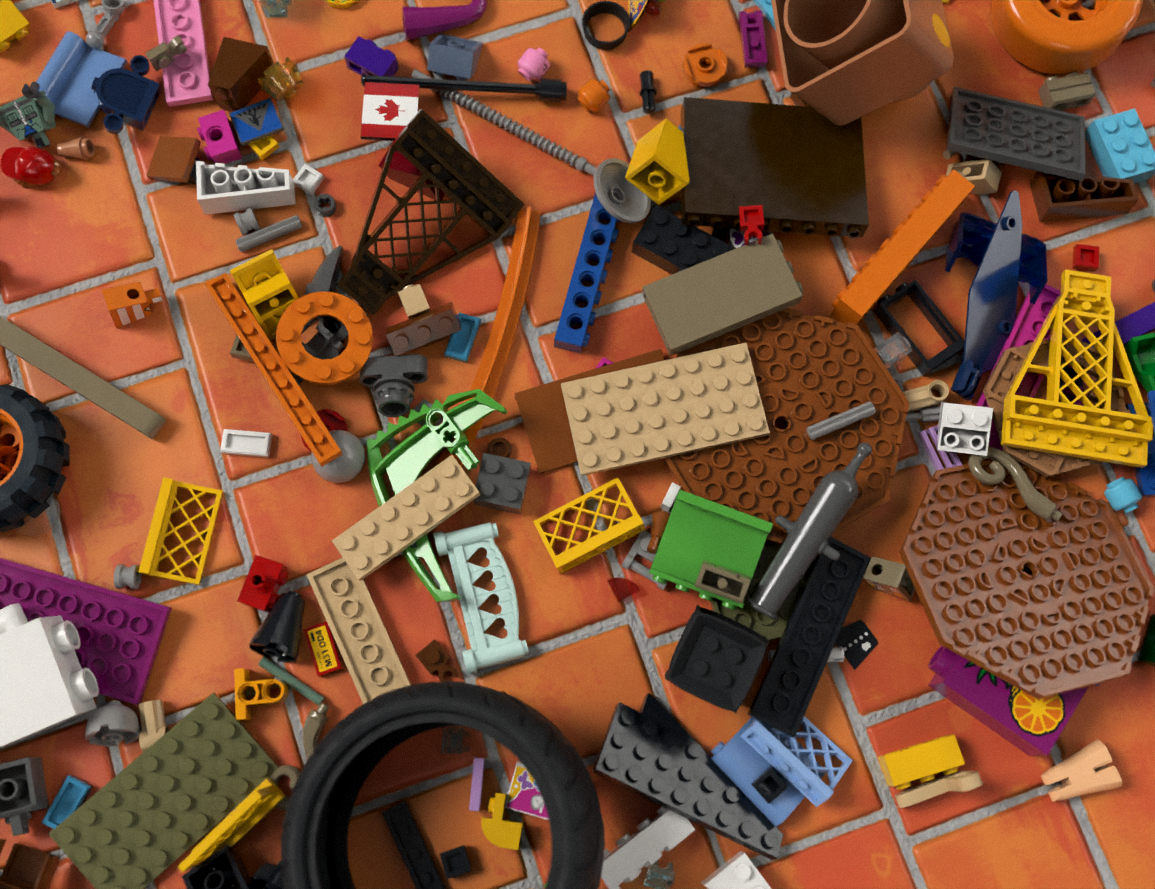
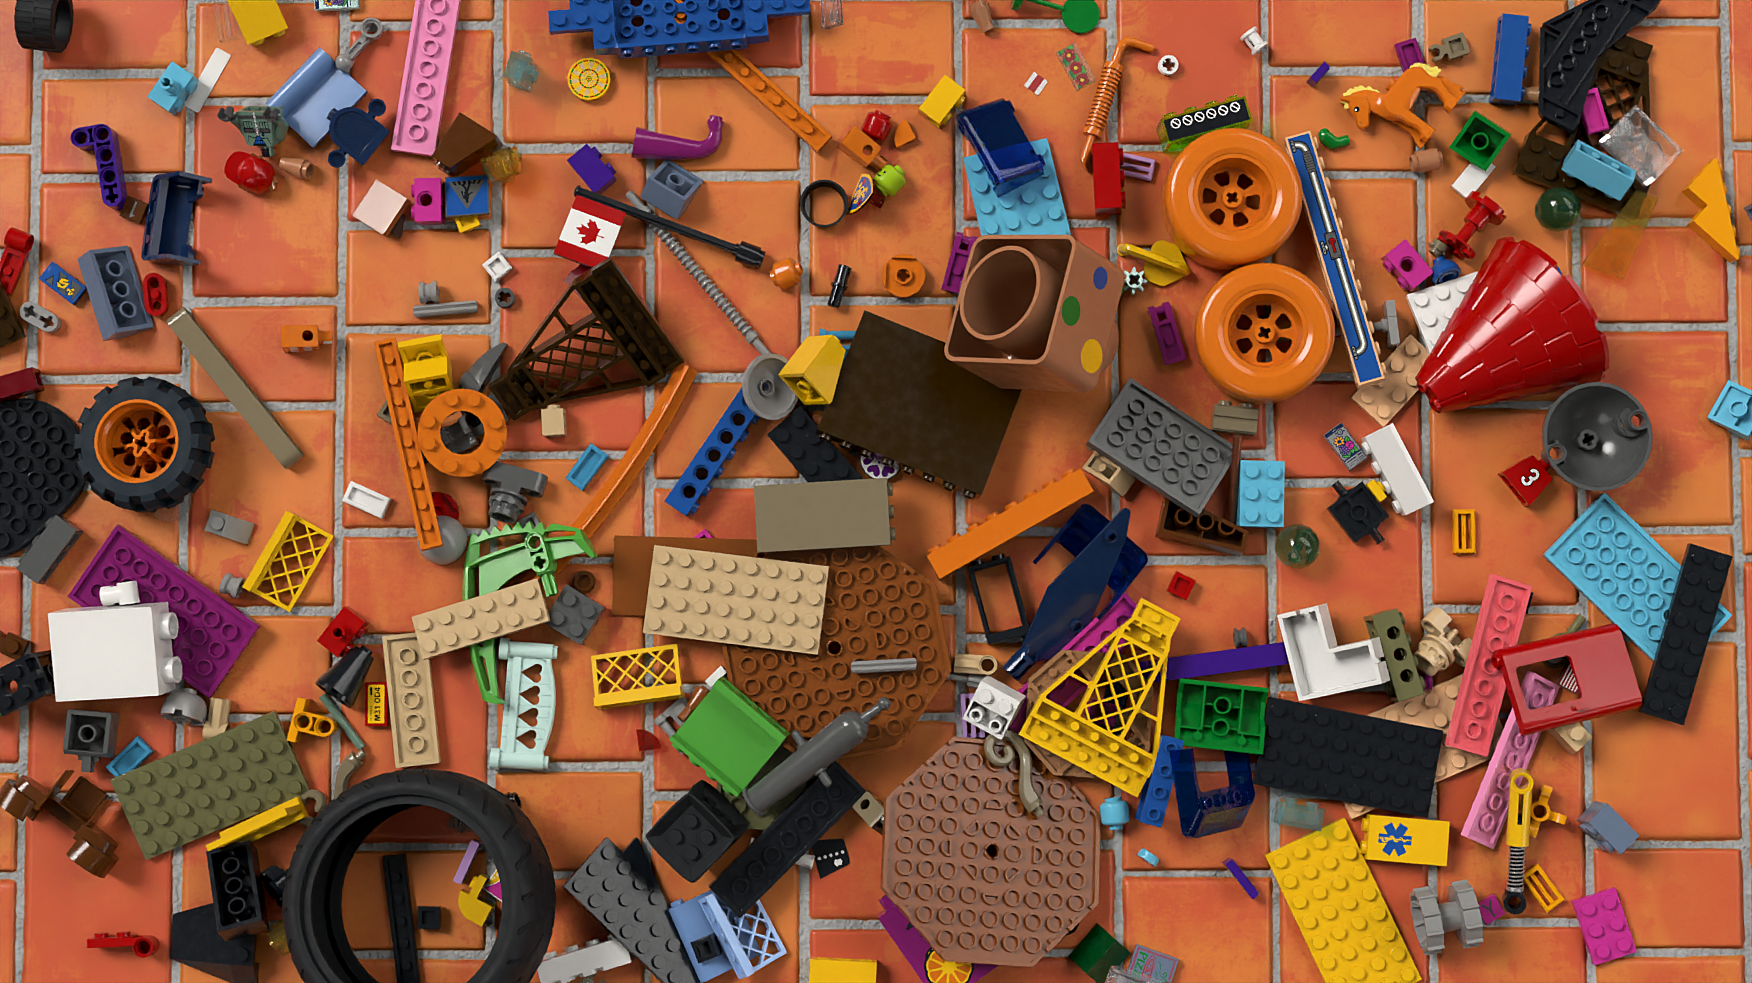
camera: 25 degrees right, 10 degrees up
(108, 518) = (229, 527): none -> light grey slope
(164, 54) = (401, 104): dark tan plate -> none
(240, 188) = (432, 259): white wedge -> none
(423, 329) = (552, 451): reddish brown brick -> none
(434, 660) = (468, 744): reddish brown plate -> none
(533, 64) = (741, 223): bright pink head -> none
(723, 581) = (727, 769): dark tan brick -> none
(751, 222) = (872, 459): red plate -> none
(893, 351) = (957, 617): clear brick -> none
(971, 39) = (1166, 334): none -> magenta plate
(1092, 137) = (1234, 478): none -> copper bar

